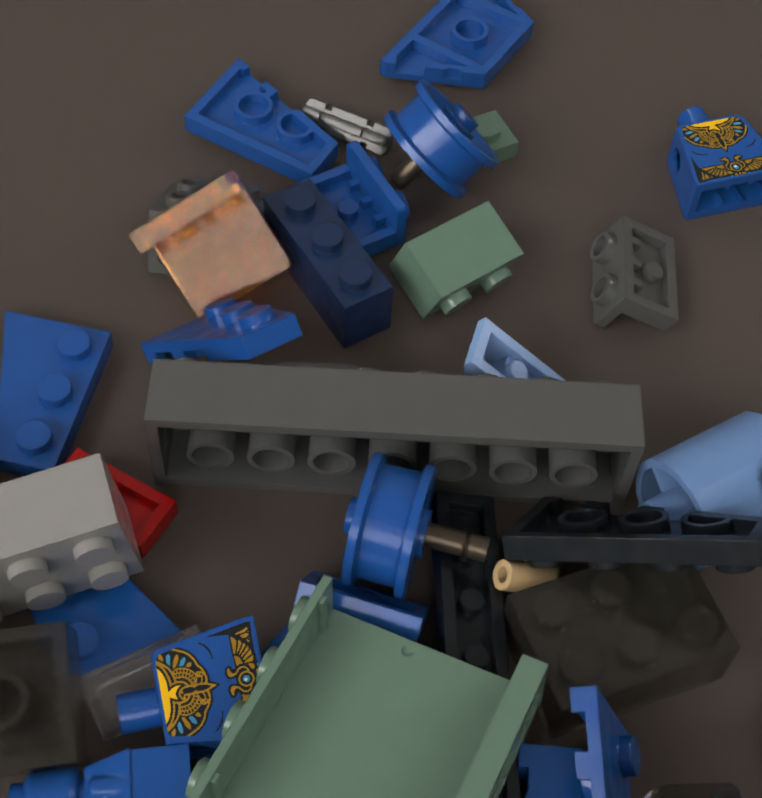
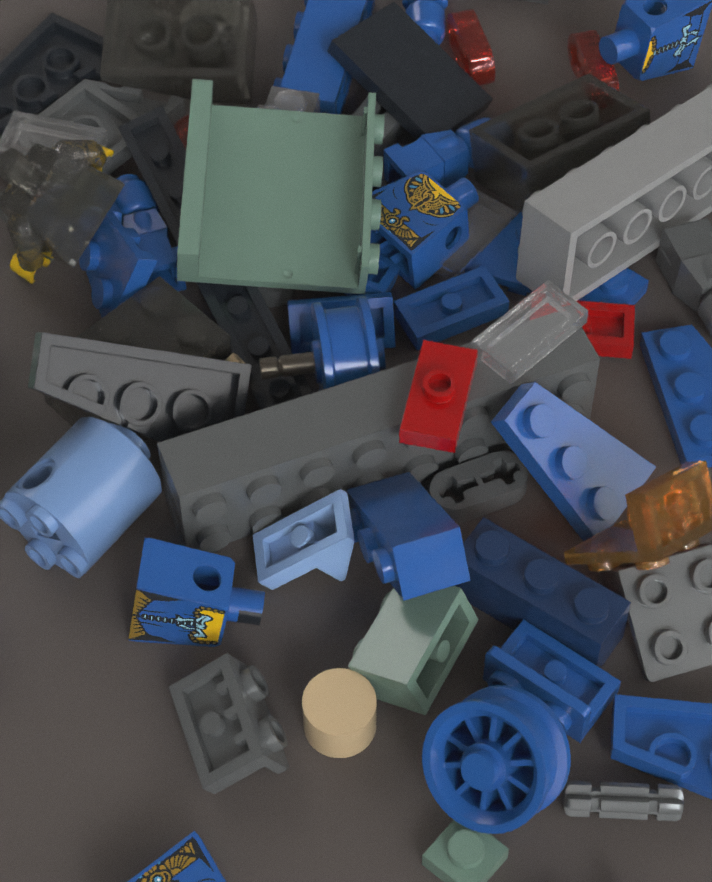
camera: 160 degrees right, 0 degrees up
(208, 398) = (529, 331): none -> clear tile
(229, 583) = (451, 307): none -> blue plate
(339, 371) = (438, 396): none -> red plate
(428, 299) = (407, 536): none -> blue brick
(547, 248) = (339, 712): none -> tan piece
(649, 352) = (188, 596): none -> blue torso

